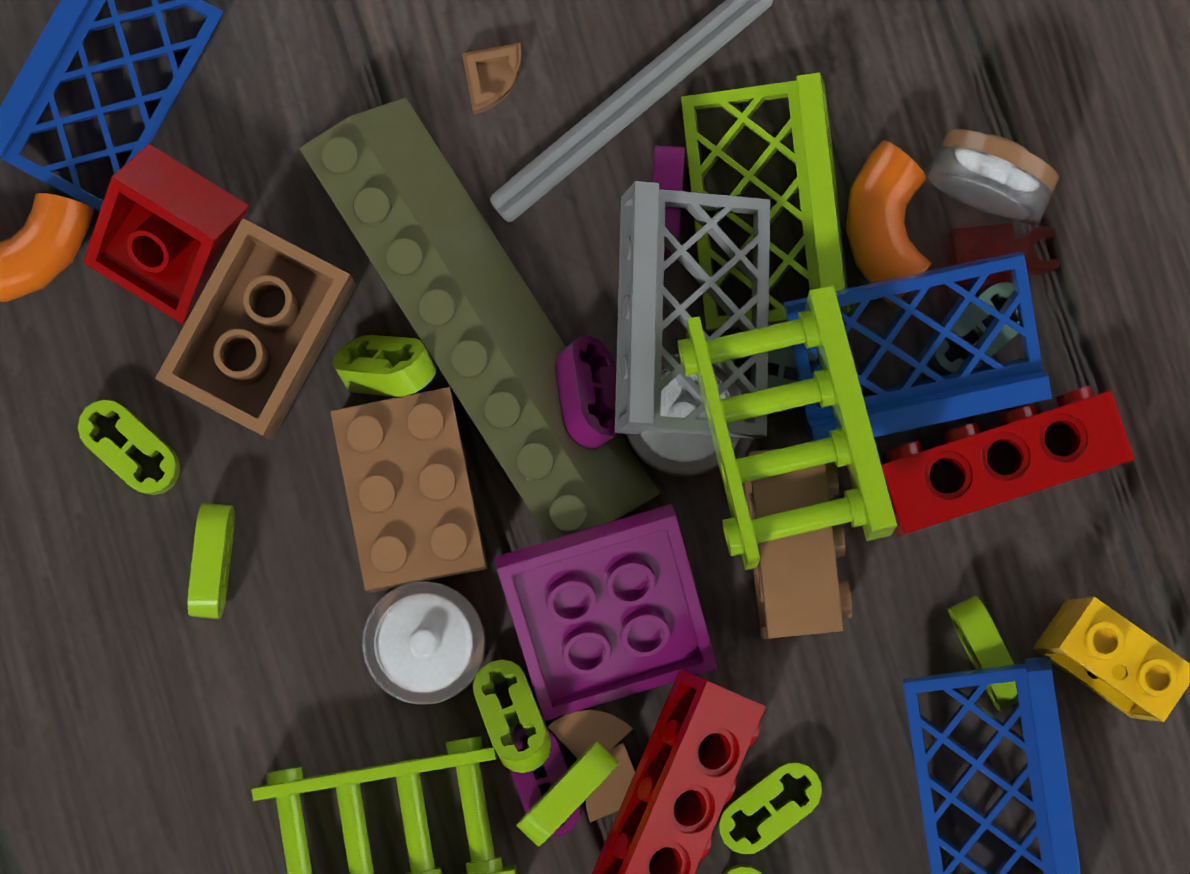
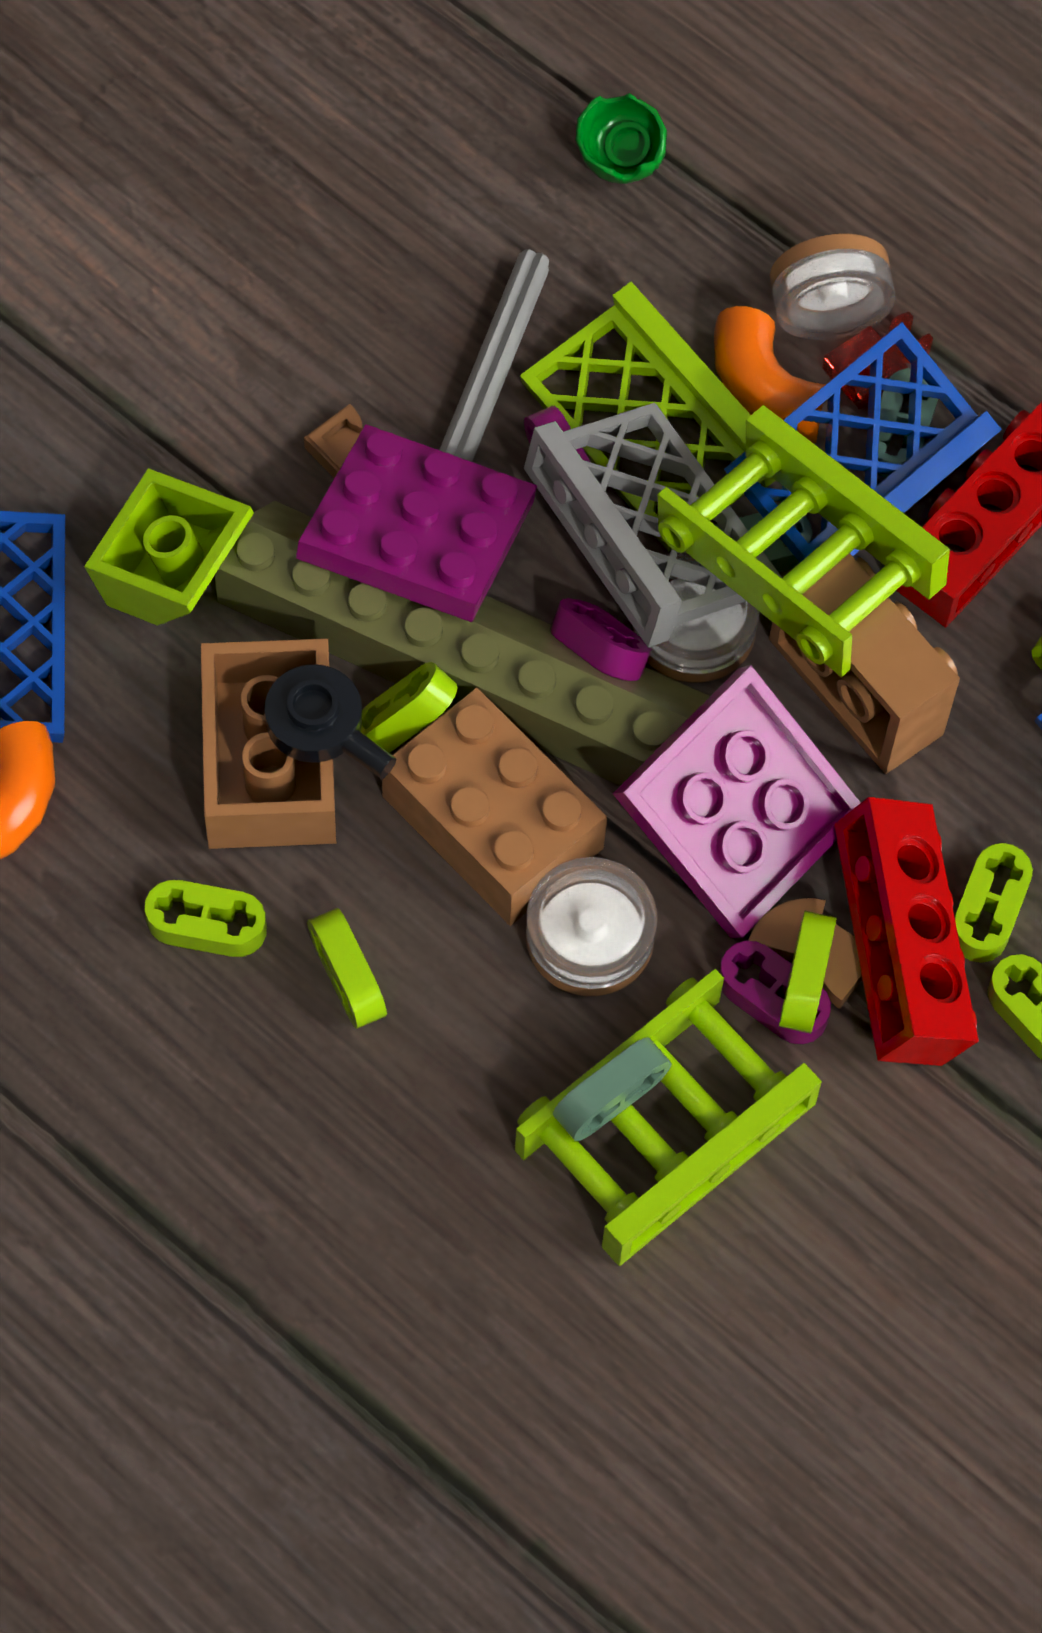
camera: 35 degrees left, 20 degrees down
(162, 231) = (127, 717): red slope -> none
(272, 105) = (165, 547): none -> lime slope
(295, 346) = (317, 716): none -> black piece
(343, 805) = (612, 1089): none -> sand green beam
(492, 203) = (417, 522): none -> magenta plate
(500, 720) = (718, 931): lime beam -> none

